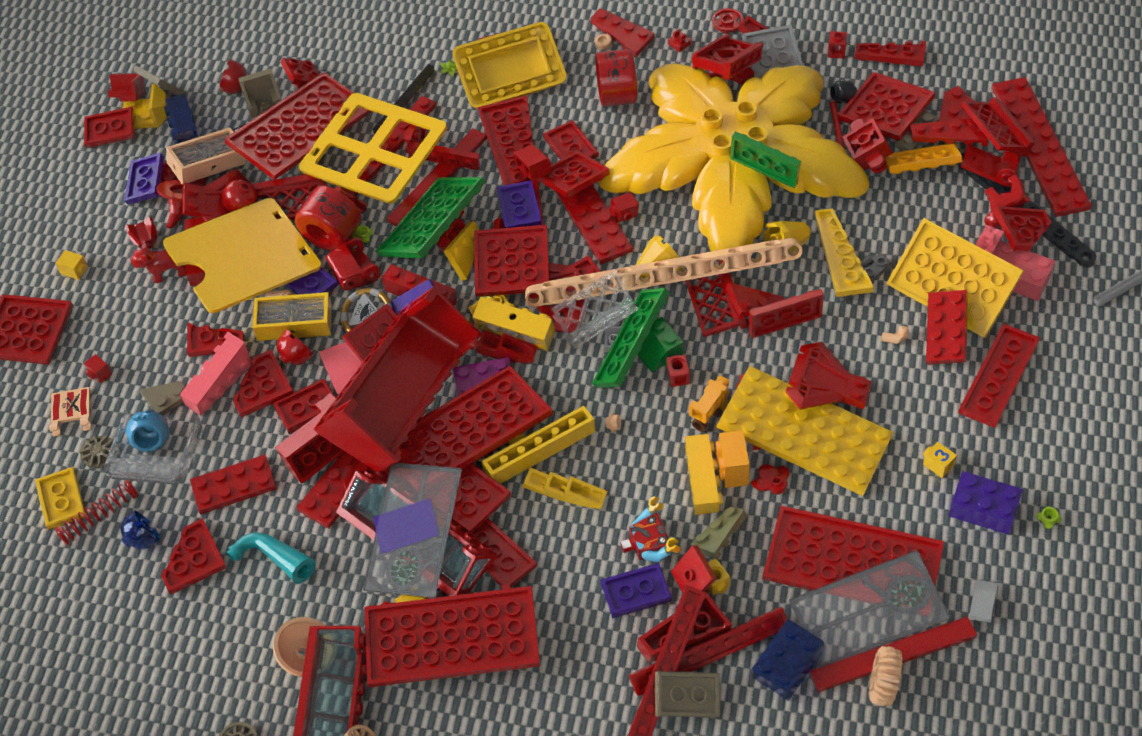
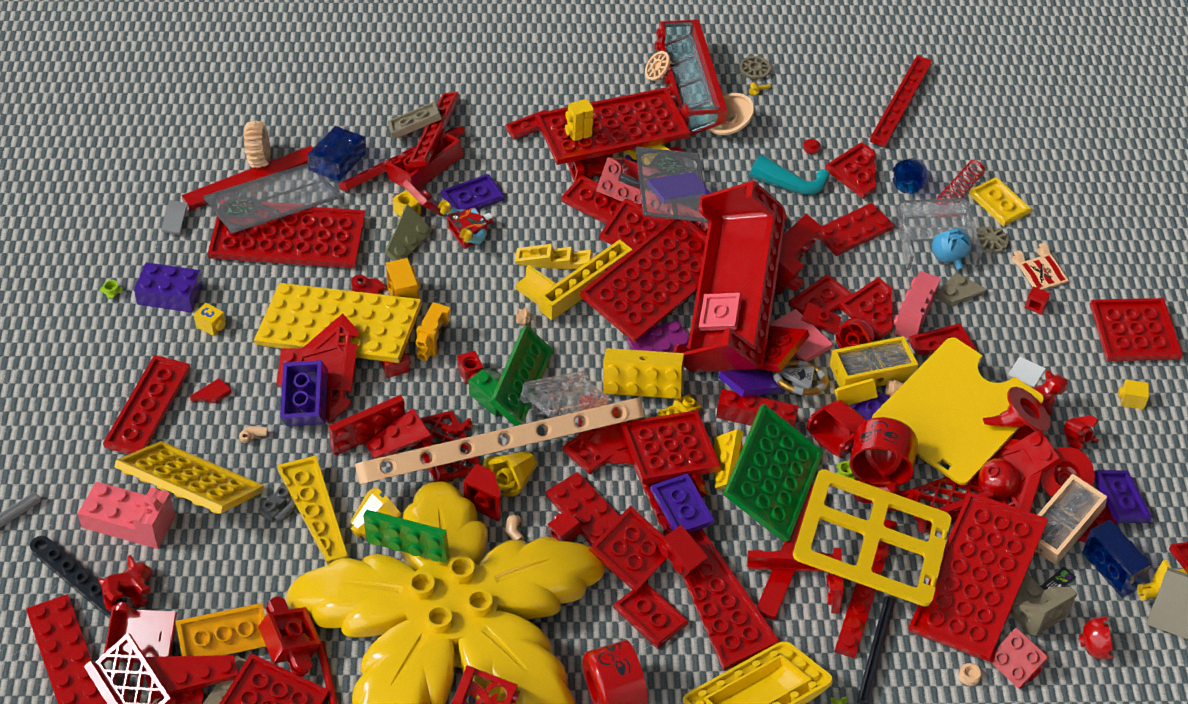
camera: 160 degrees right, 5 degrees down
(87, 654) = (900, 101): none -> red plate
(150, 308) = (1026, 371): none -> white sticker
(192, 218) = (1022, 411): none -> red piece
(226, 601) = (811, 146): none -> red plate
(253, 704) = (754, 90): none -> yellow hand
(318, 375) = (821, 318): none -> red plate
(323, 284) = (857, 392): none -> yellow panel
(342, 76) = (970, 674): none -> light nougat tile
(418, 371) = (720, 311): none -> coral plate
(493, 613) = (579, 120): none -> yellow brick
(545, 683) = (523, 126): none -> red plate
(592, 454) = (534, 284): none -> yellow panel
(668, 221) = (511, 527): none -> light nougat arm
(690, 236) = (483, 491): none -> red slope
(702, 475) = (430, 278): yellow brick -> none
(703, 312) = (458, 428): none -> red piece
(844, 347) = (304, 393): none -> dark purple brick
(935, 384) = (212, 392): none -> red tile
(947, 327) = (199, 436): red plate -> none
(1022, 225) = (109, 543): red plate -> none

